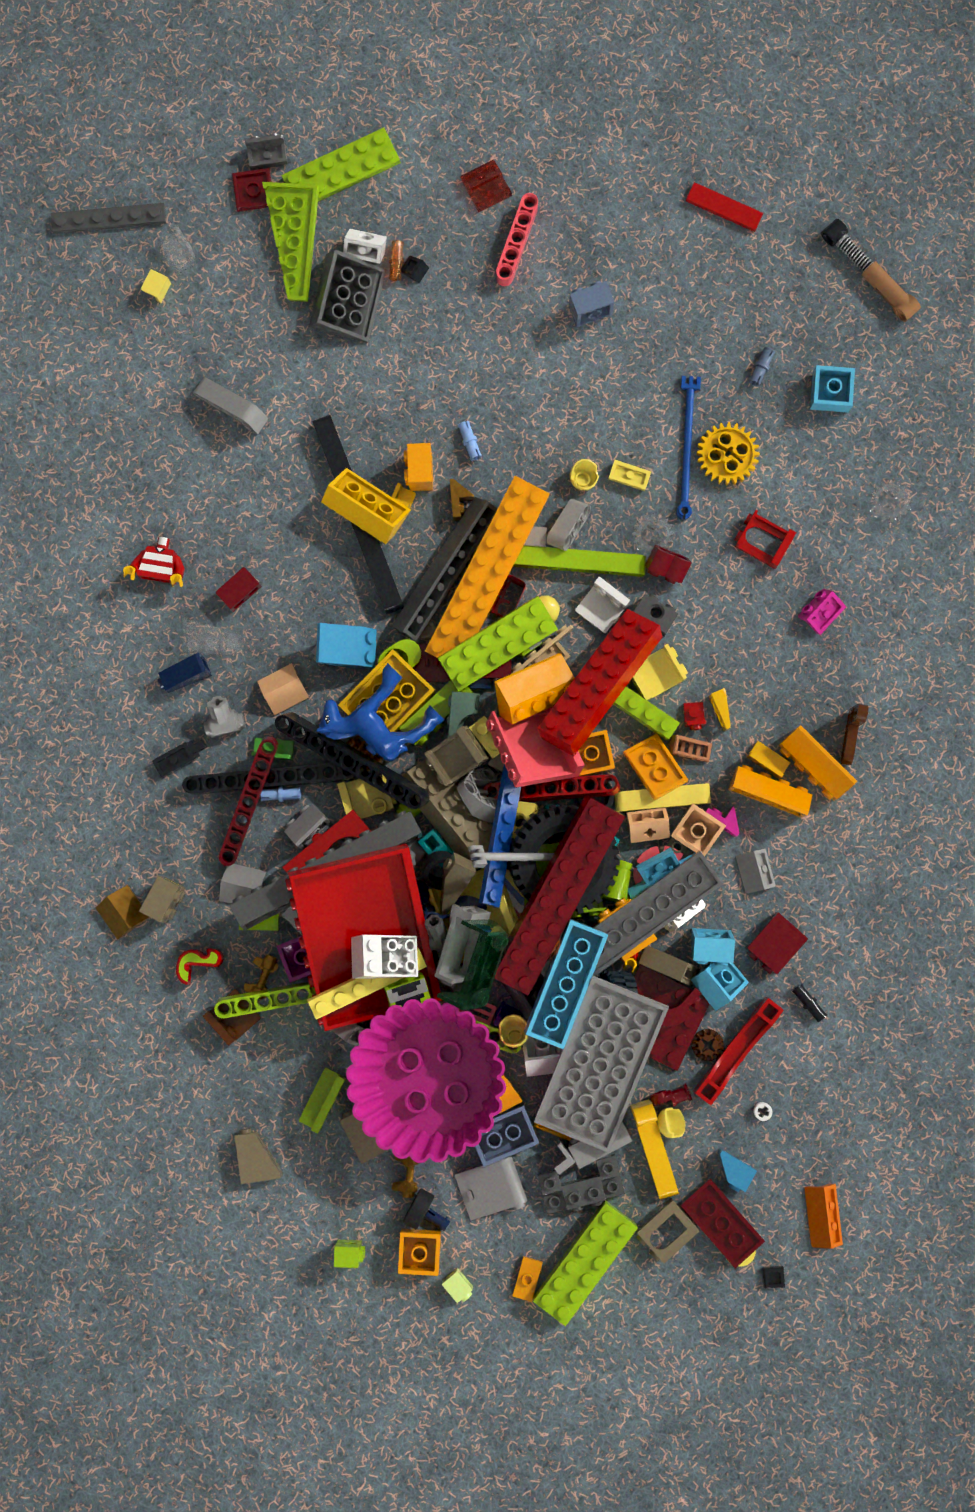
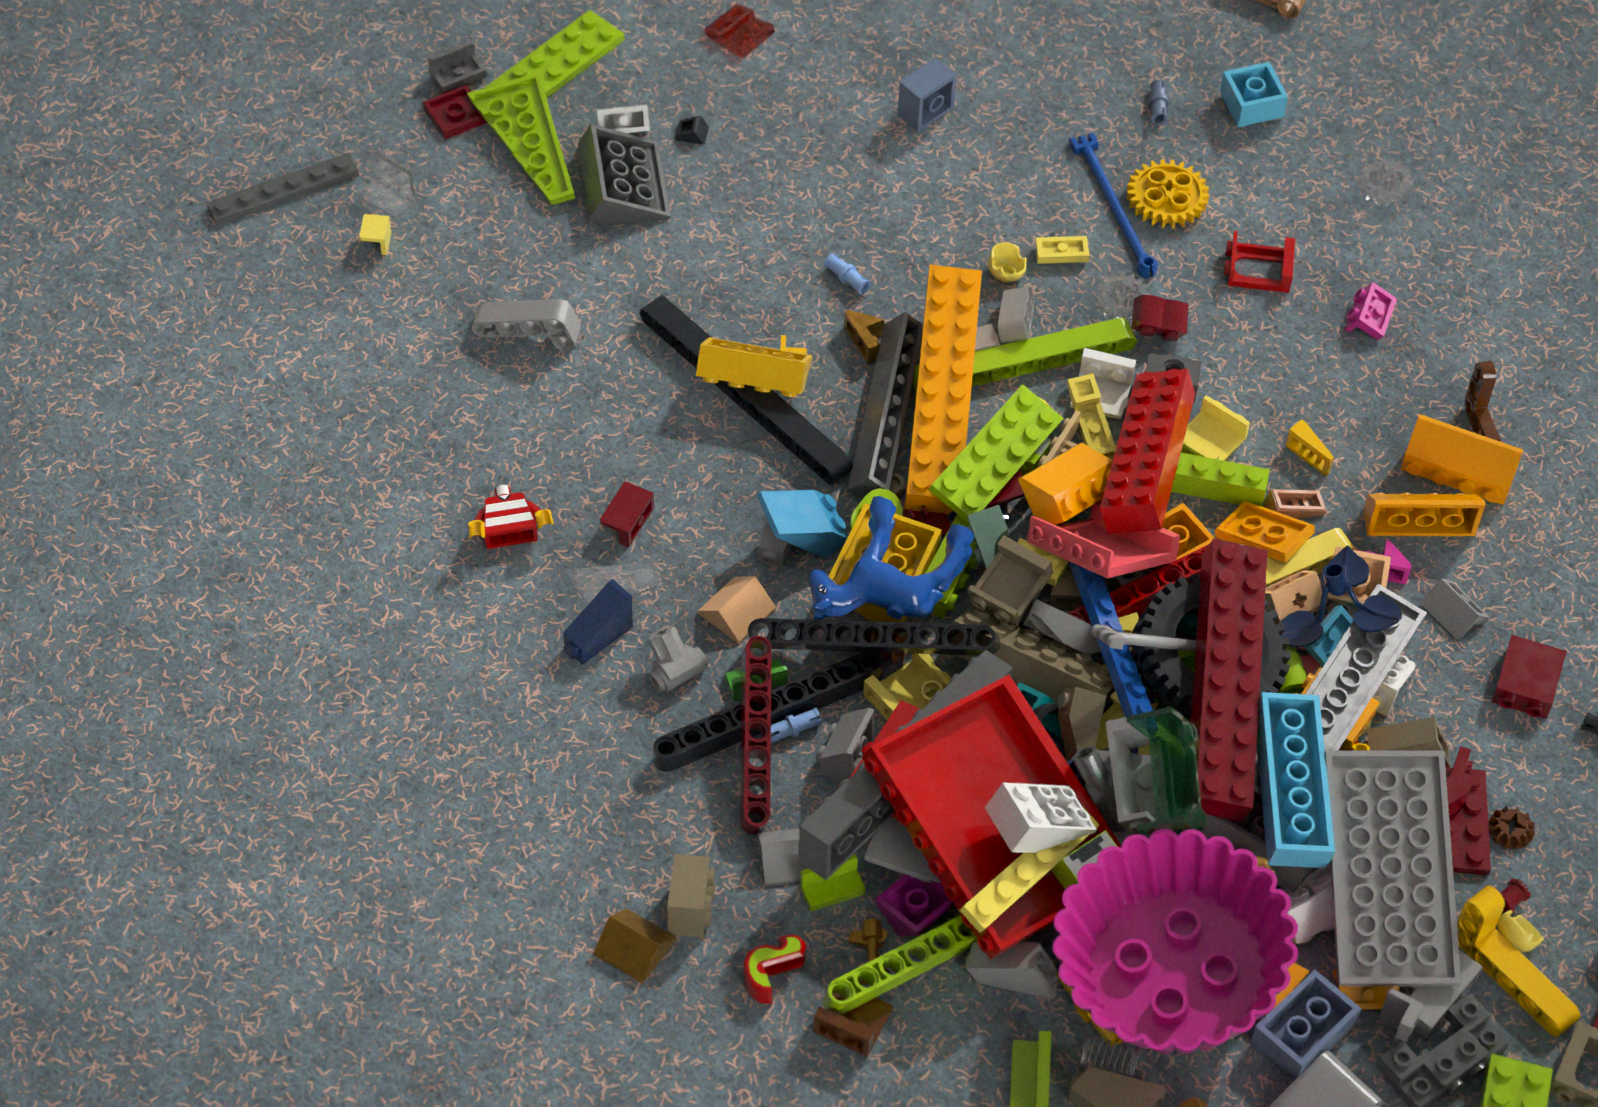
camera: 30 degrees left, 30 degrees down
(178, 757) = (631, 729): black hinge -> none
(396, 260) = (666, 127): clear orange pin -> none
(420, 469) = (801, 310): light orange brick -> none
(510, 578) = (983, 392): red piece -> none
(517, 230) = (804, 66): coral beam -> none
(581, 634) = (1093, 423): none -> light yellow slope
(683, 878) = (1339, 576): none -> dark blue plant
(694, 715) = (1281, 468): red bracket -> none
(712, 946) = (1453, 697): medium azure slope -> none
(719, 983) = (1489, 745): medium azure slope -> none
(726, 1064) = (1553, 815): red arch -> none
(768, 760) = (1397, 483): yellow panel -> none

